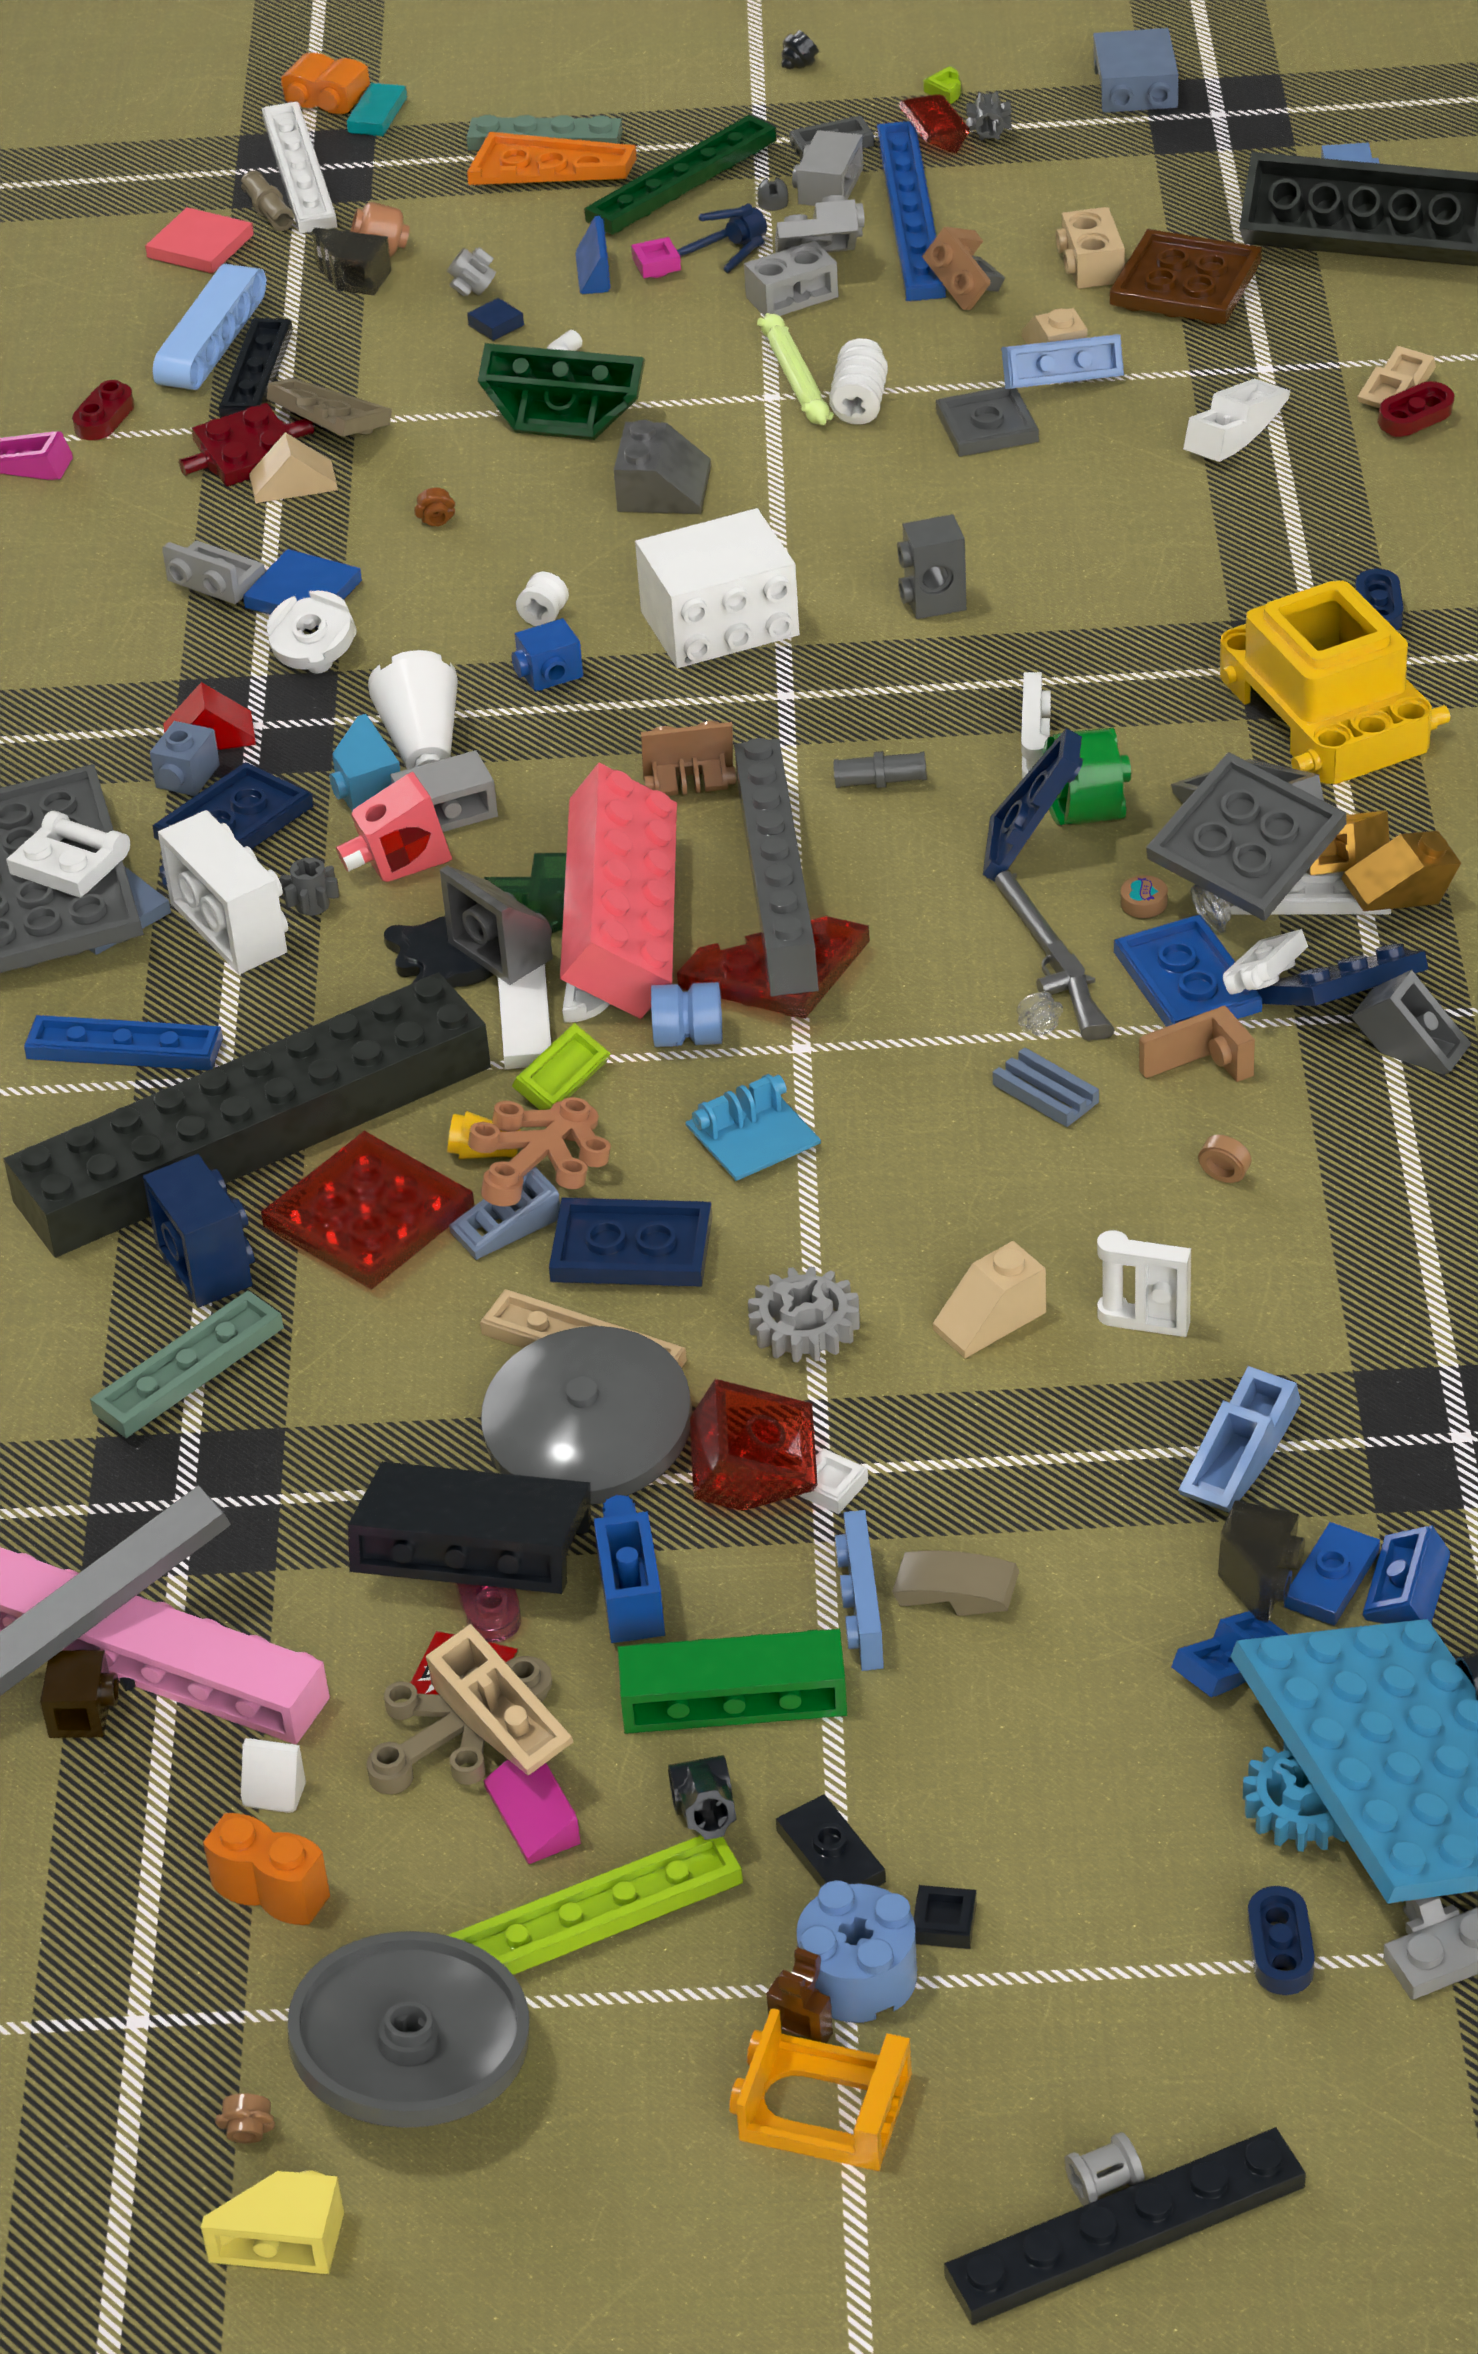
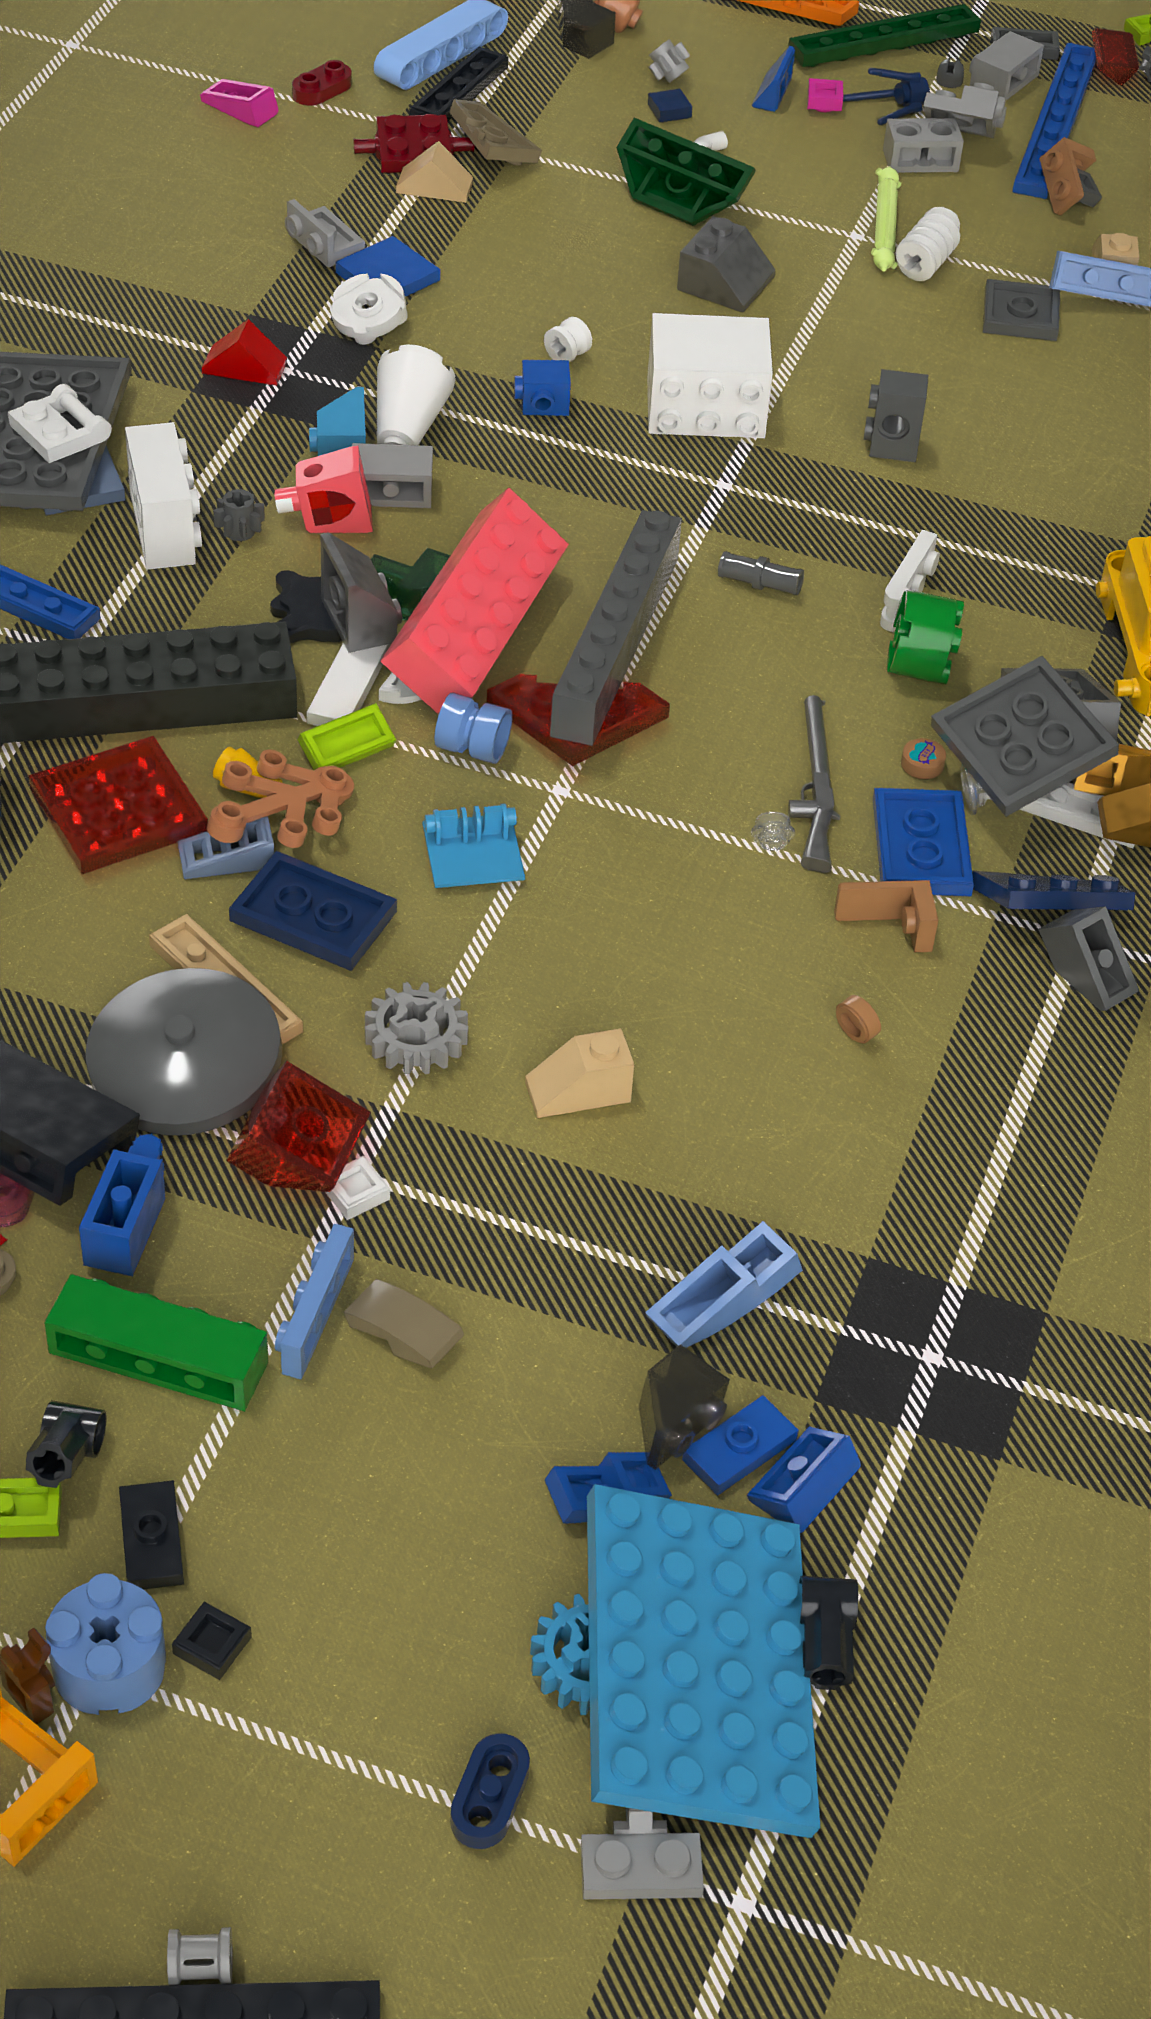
camera: 15 degrees right, 5 degrees up
(184, 758) = (207, 377): sand blue brick -> none
(248, 802) = (229, 435): dark blue tile -> none
(434, 506) = (529, 238): dark orange plate -> none
(688, 751) = (599, 503): medium nougat hinge -> none
(1029, 802) = (861, 641): dark blue wing -> none
(1051, 1082) = (750, 895): sand blue tile -> none
(1160, 1285) = (727, 1113): white plate -> none
(1264, 962) = (987, 853): white hinge -> none

